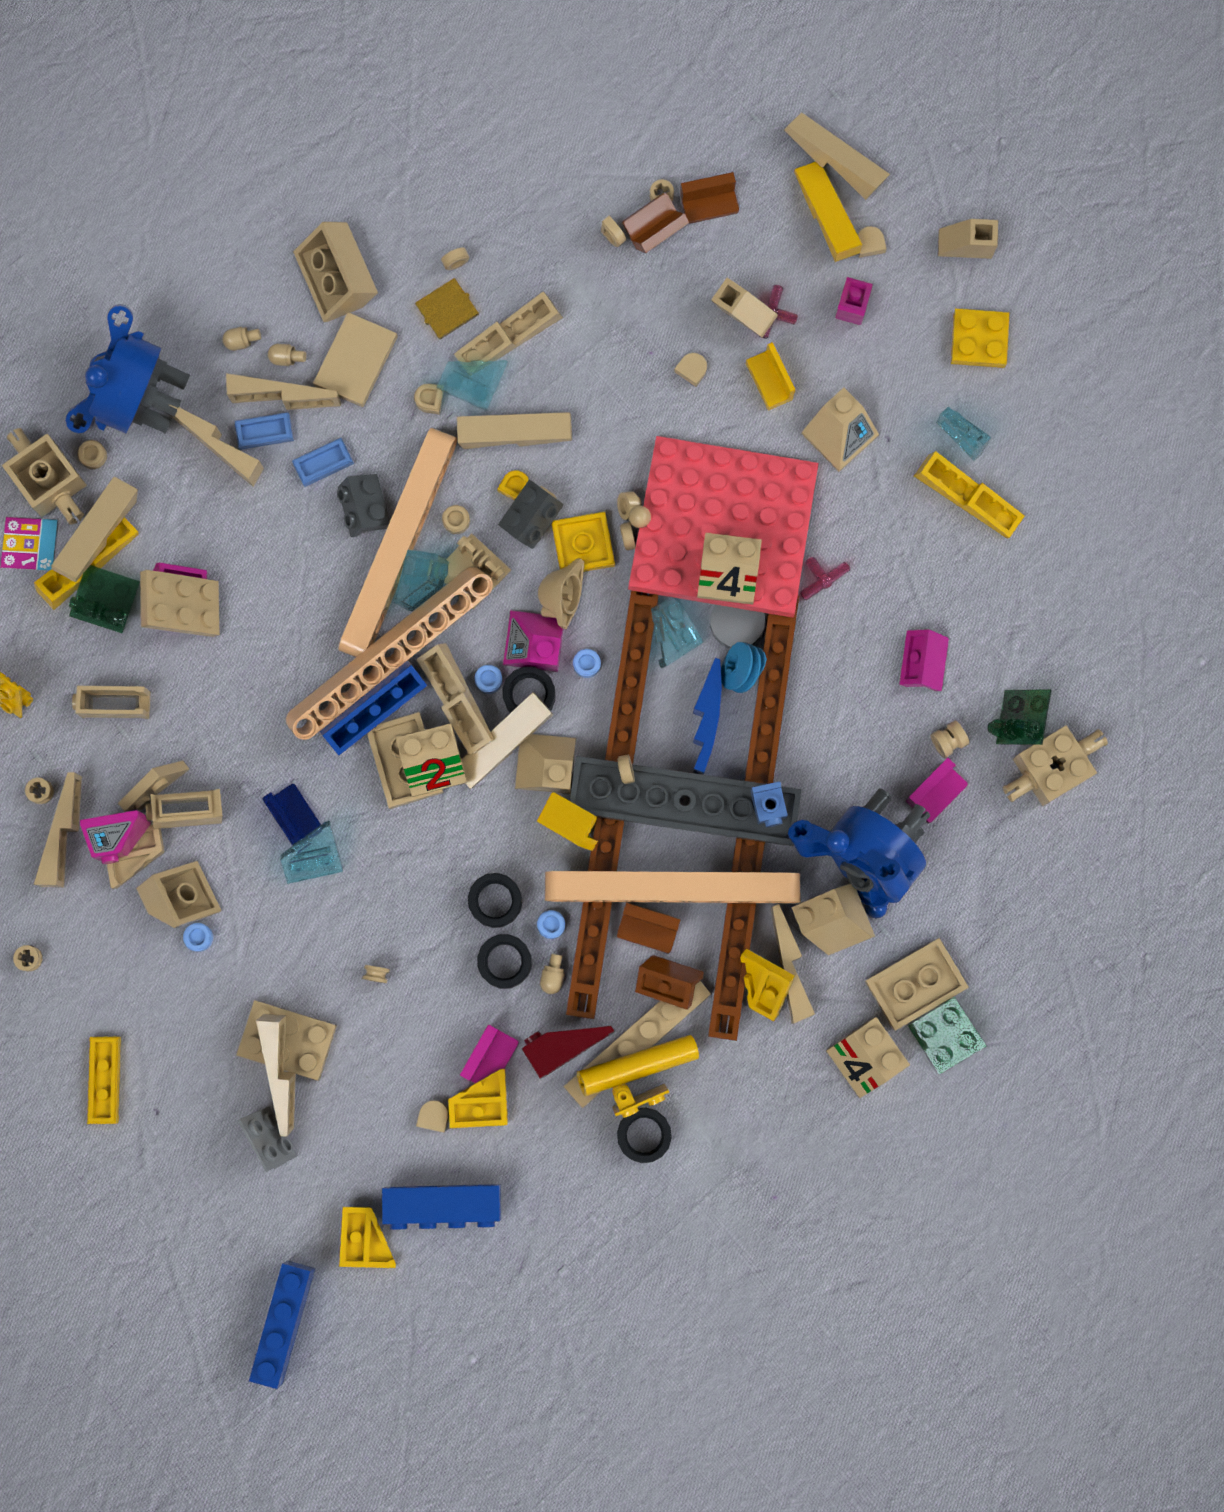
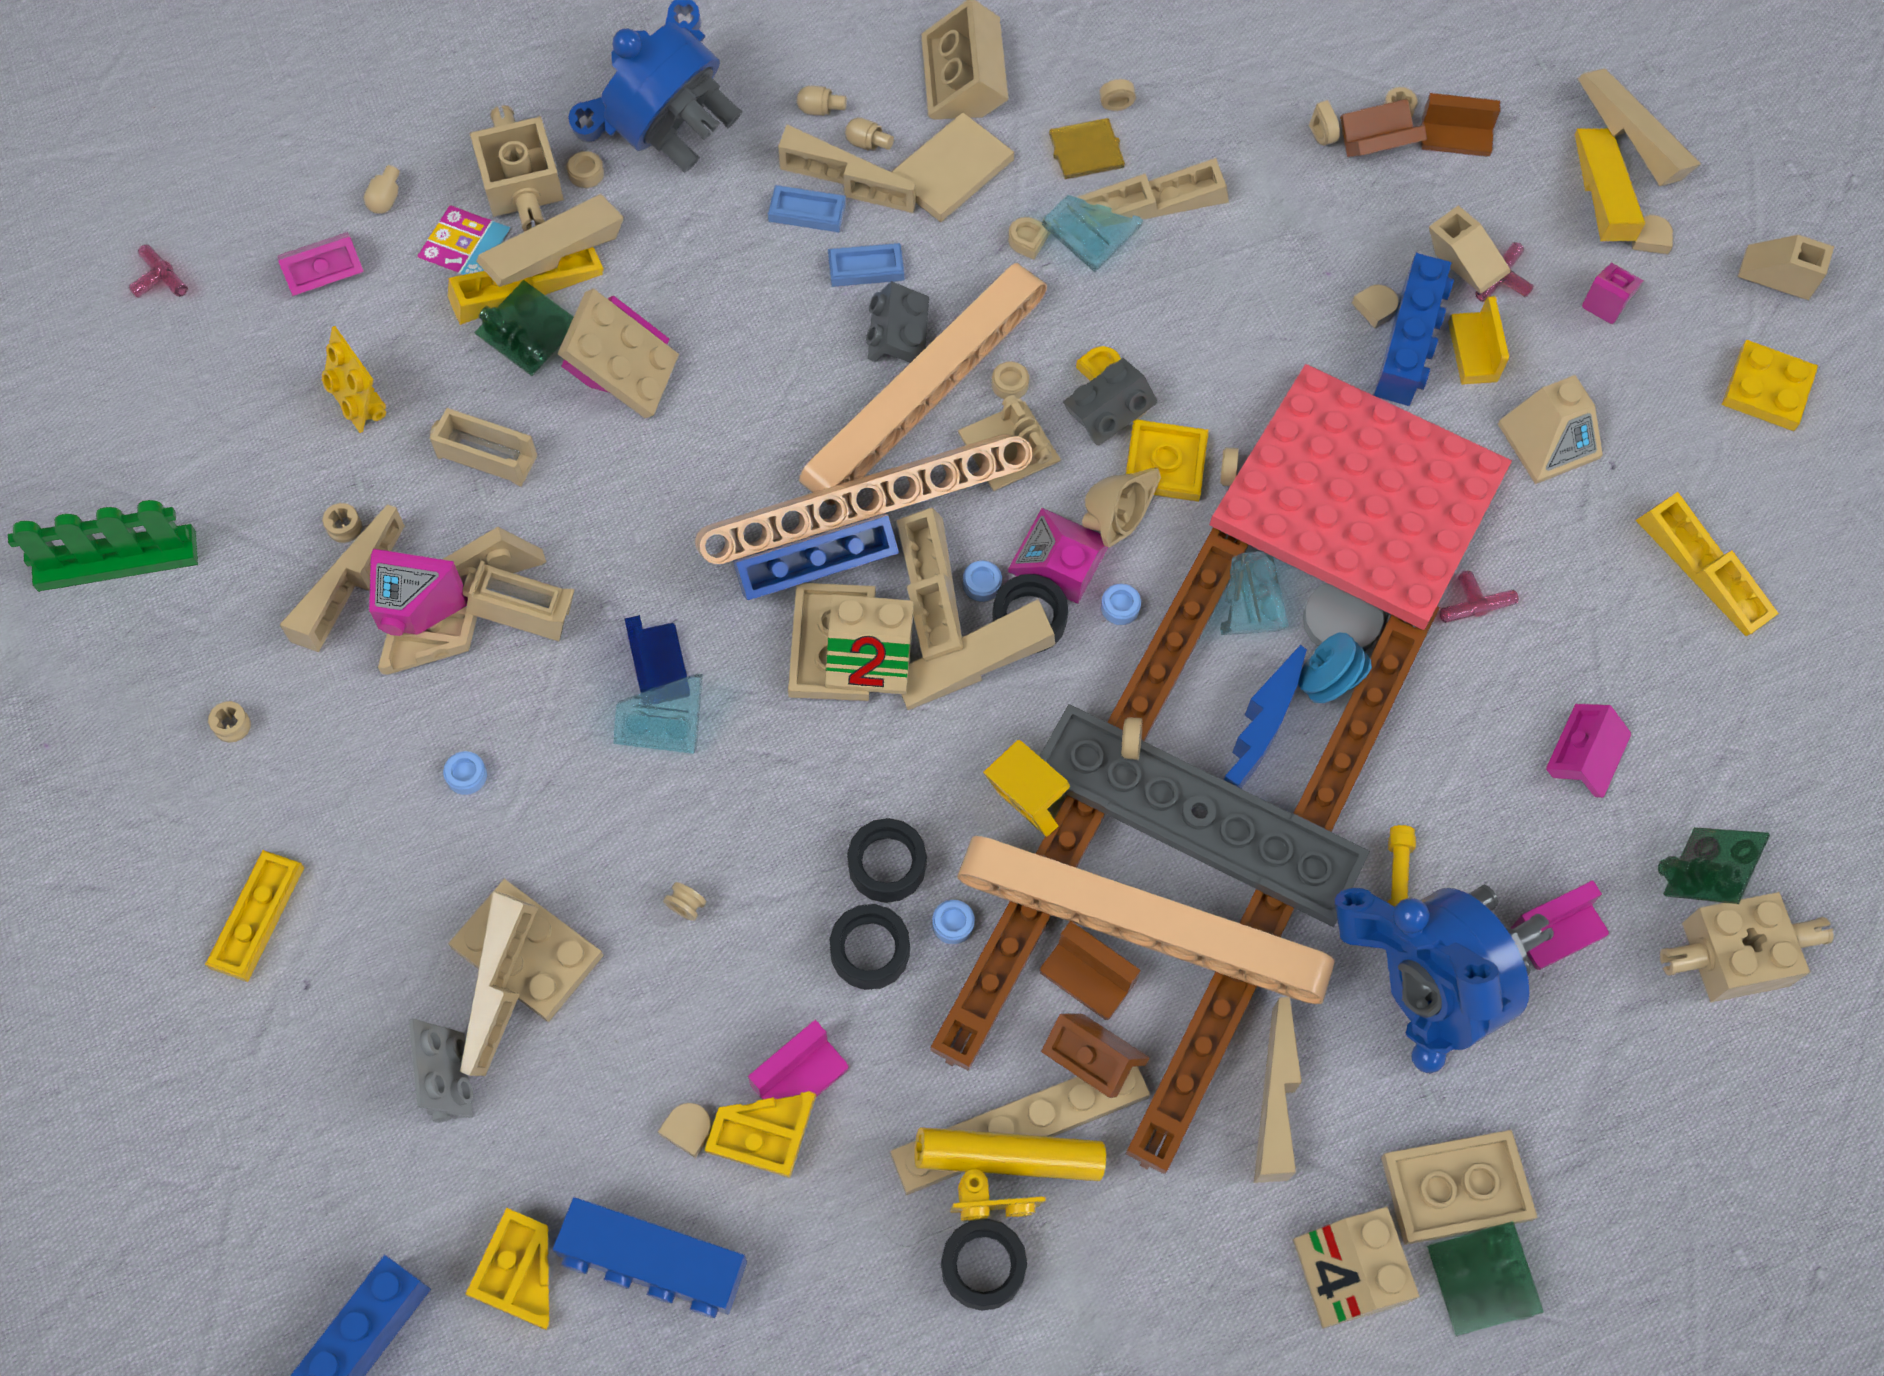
camera: 15 degrees right, 15 degrees down
(179, 895) = (463, 705): tan slope -> none
(208, 434) = (735, 186): tan slope -> none
(420, 578) = (939, 425): clear light blue slope -> none
(513, 429) = (1136, 303): tan slope -> none
(546, 764) = (1020, 708): tan slope -> none
(552, 975) = (930, 990): tan cylinder -> none
(557, 1048) = (908, 1087): dark red slope -> none
(631, 509) = (1247, 435): tan plate -> none
(722, 383) = (1413, 329): none -> blue brick
(729, 568) = (1357, 531): tan slope -> none
(765, 984) = (1236, 1104): yellow wing -> none
(769, 792) = (1319, 833): medium blue brick -> none
(820, 769) = (1402, 843): none -> yellow bar
(834, 920) = (1364, 1046): tan slope -> none
(949, 739) = (1600, 861): tan wheel -> none
(963, 432) = (1722, 483): clear light blue wing -> none

